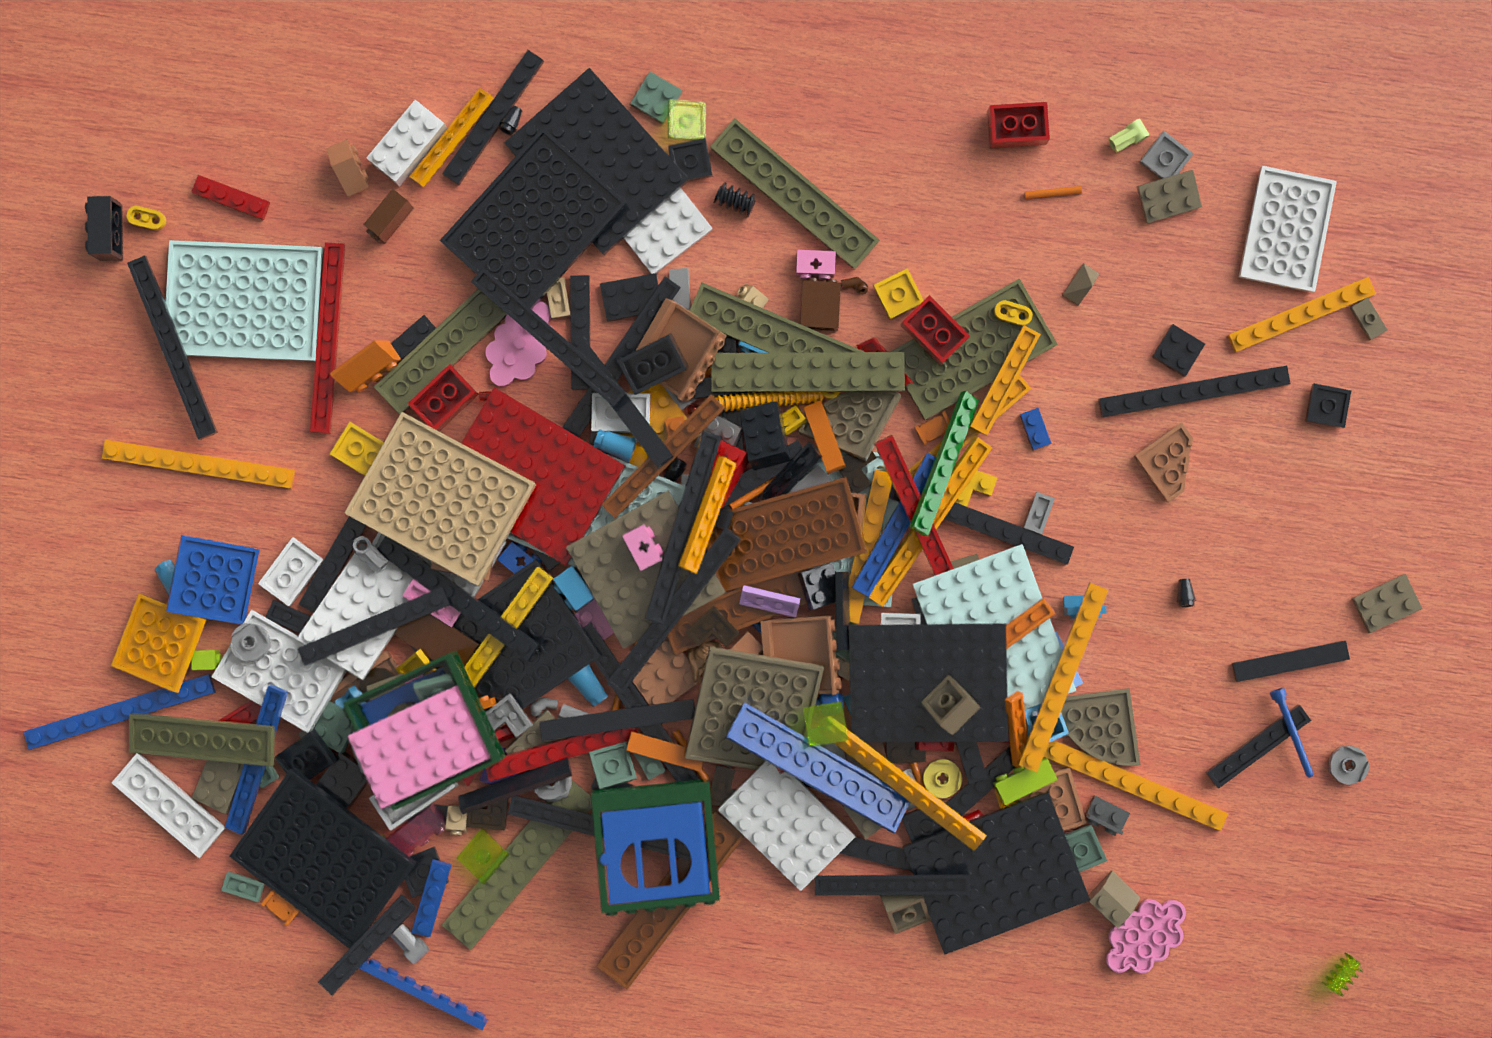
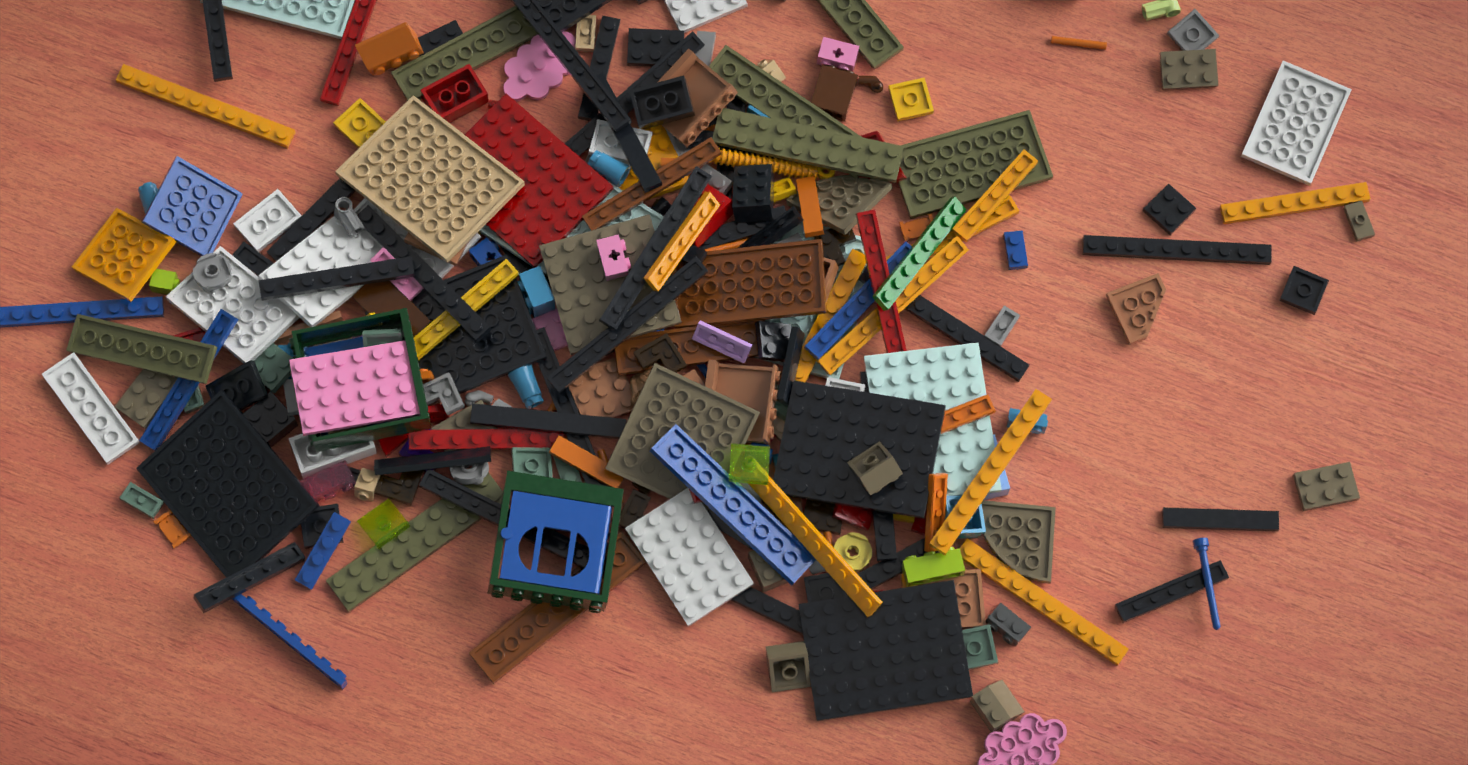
camera: 10 degrees right, 15 degrees down
(413, 947) = (291, 593): light grey piece -> none
(893, 884) = (780, 636): black plate -> none
(934, 330) = (937, 134): red brick -> none
(979, 482) = (947, 285): yellow plate -> none
(1013, 312) = (1017, 136): yellow plate -> none
(1081, 284) = (1087, 130): dark tan slope -> none
(1185, 593) = (1129, 433): black cone -> none
(1358, 760) = (1247, 632): light grey plate -> none

